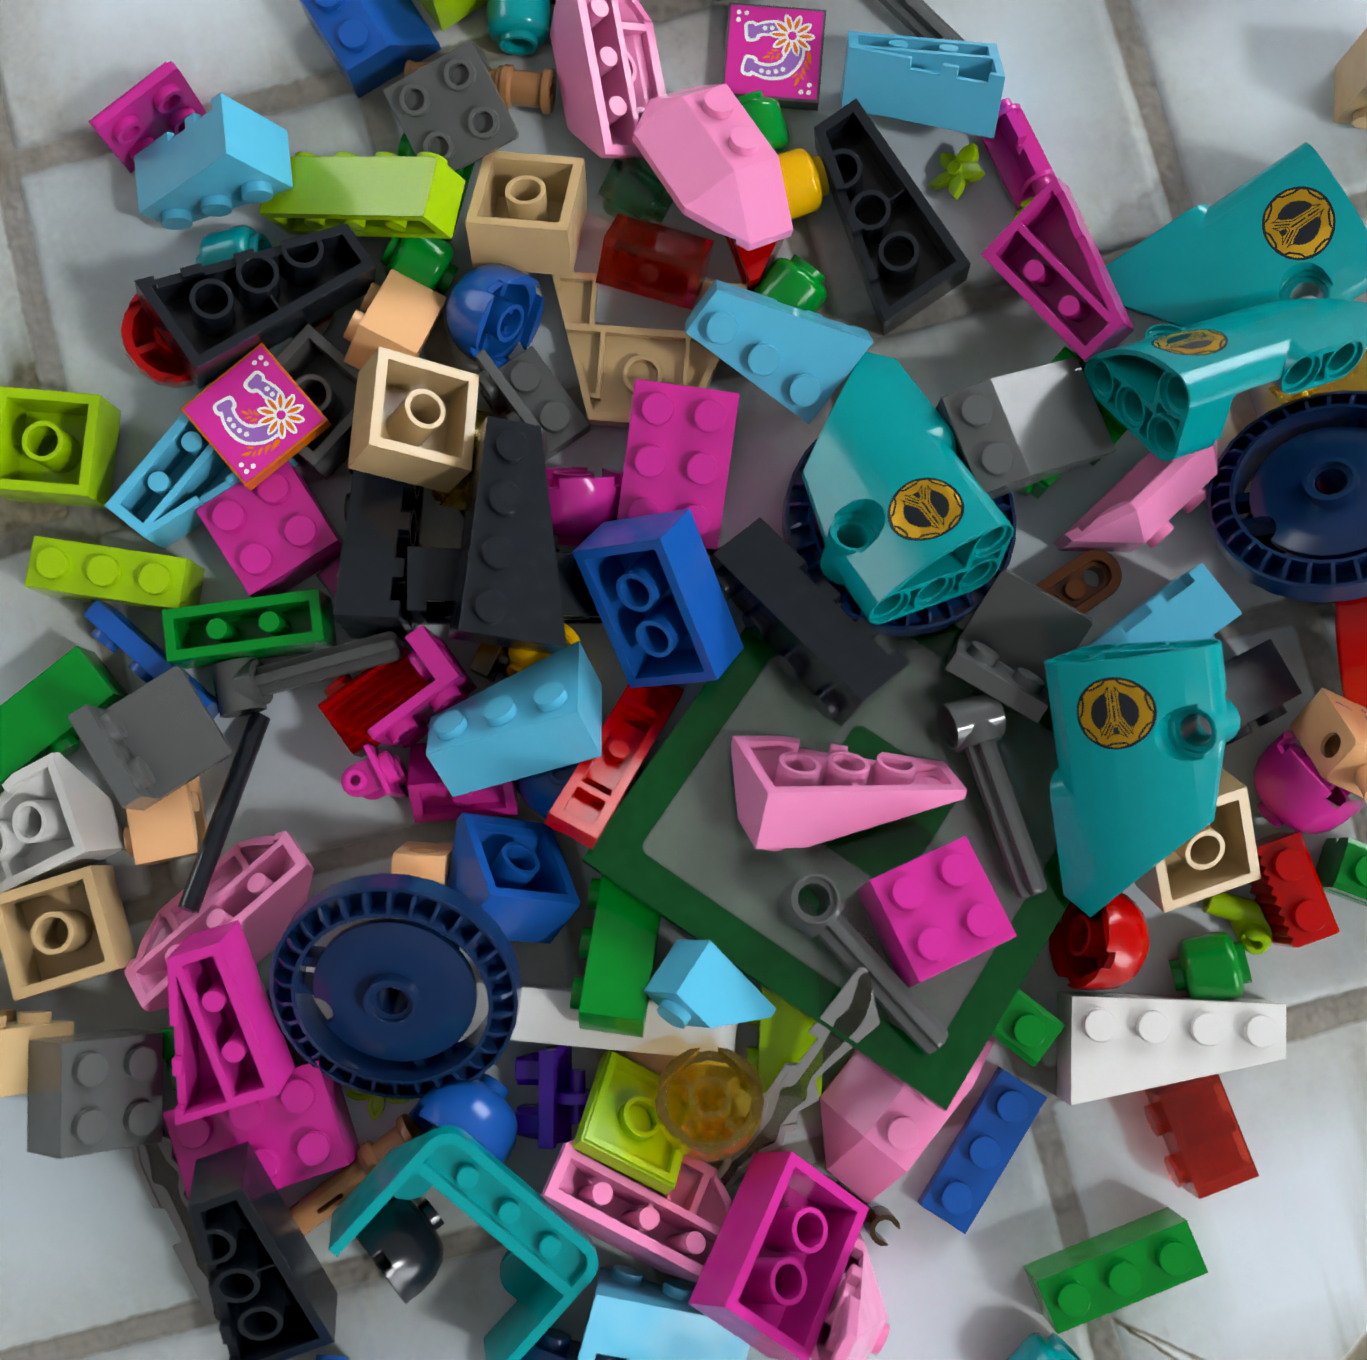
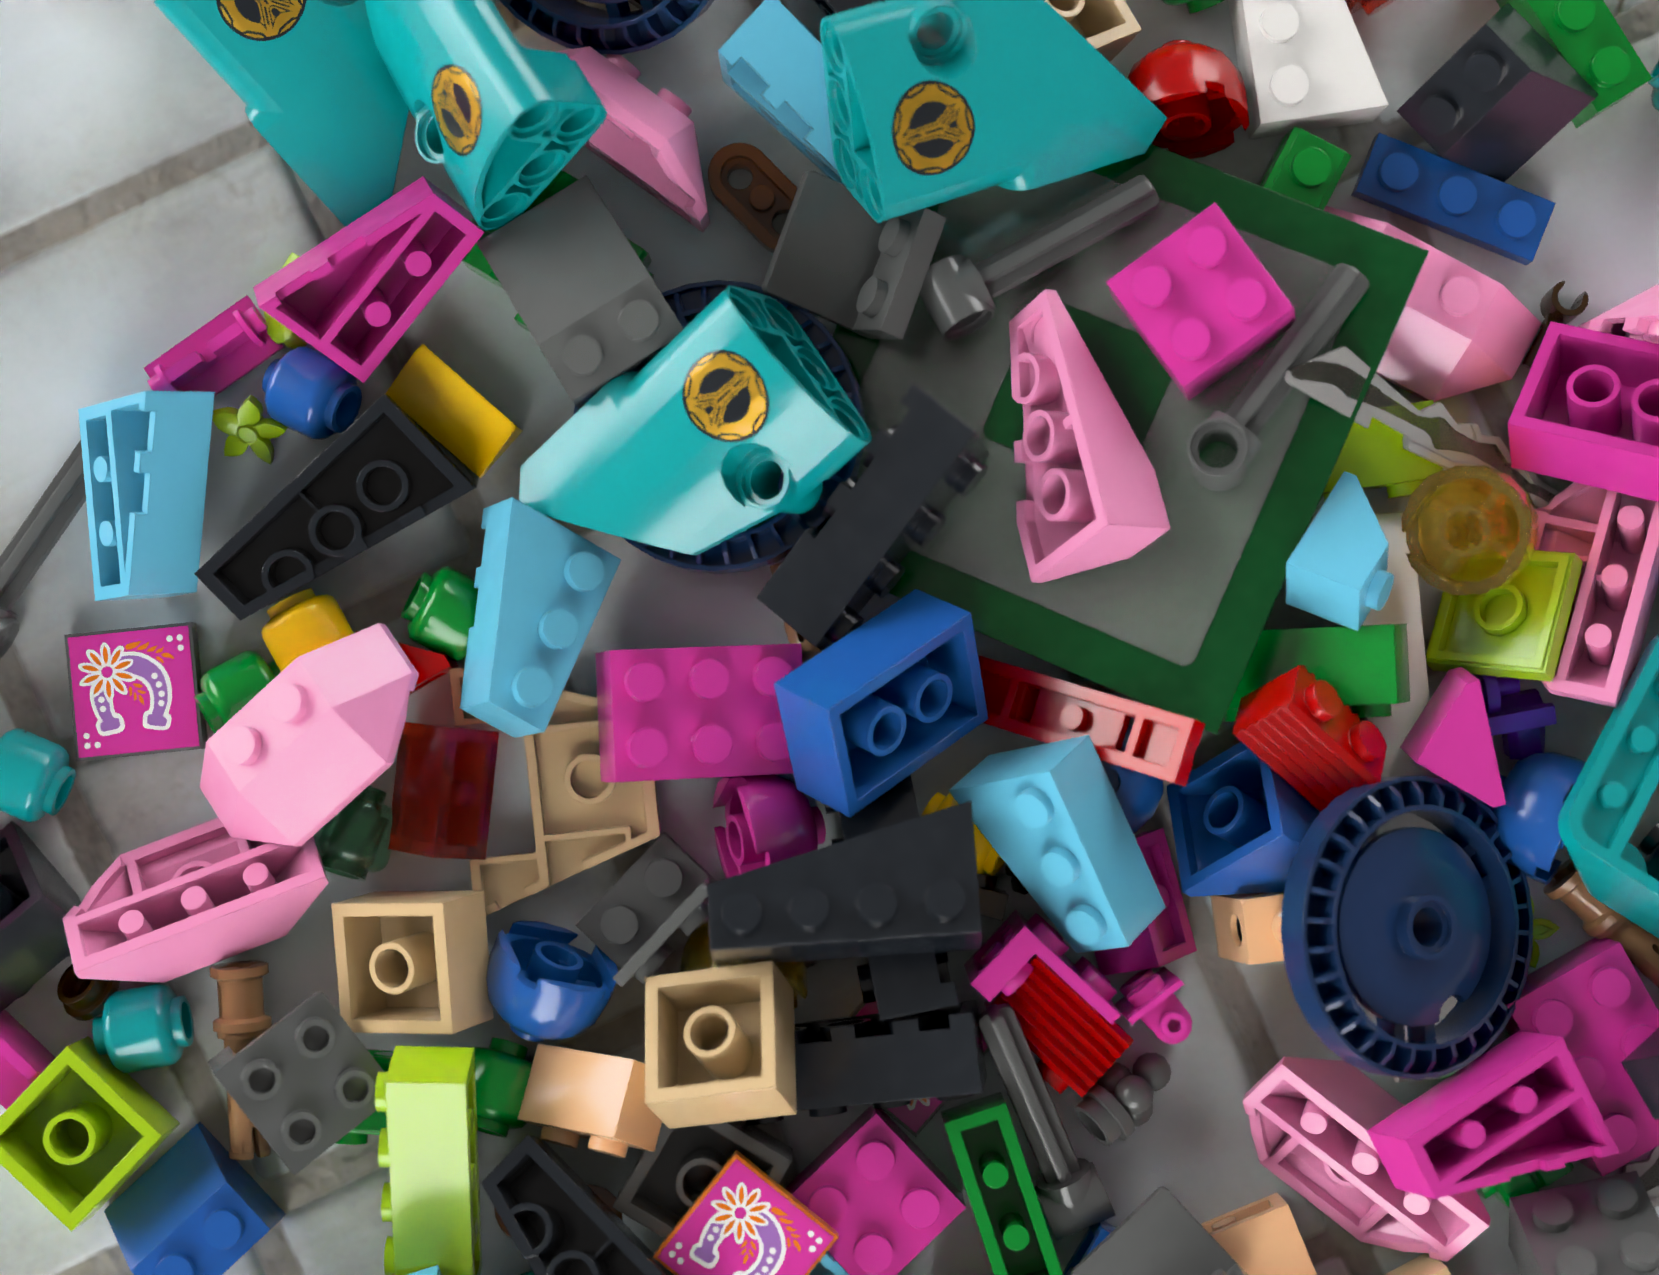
camera: 105 degrees left, 5 degrees up
(224, 813) = (1231, 1183): black bar -> none
(310, 741) = (1123, 1099): none -> dark grey piece
(537, 1057) = (1456, 738): none -> dark pink slope
(565, 936) = (1310, 737): none -> red brick
(946, 326) = (452, 411): none -> yellow slope
(978, 217) = (311, 393): none -> blue head
(1062, 1199) = (1498, 98): none -> black slope

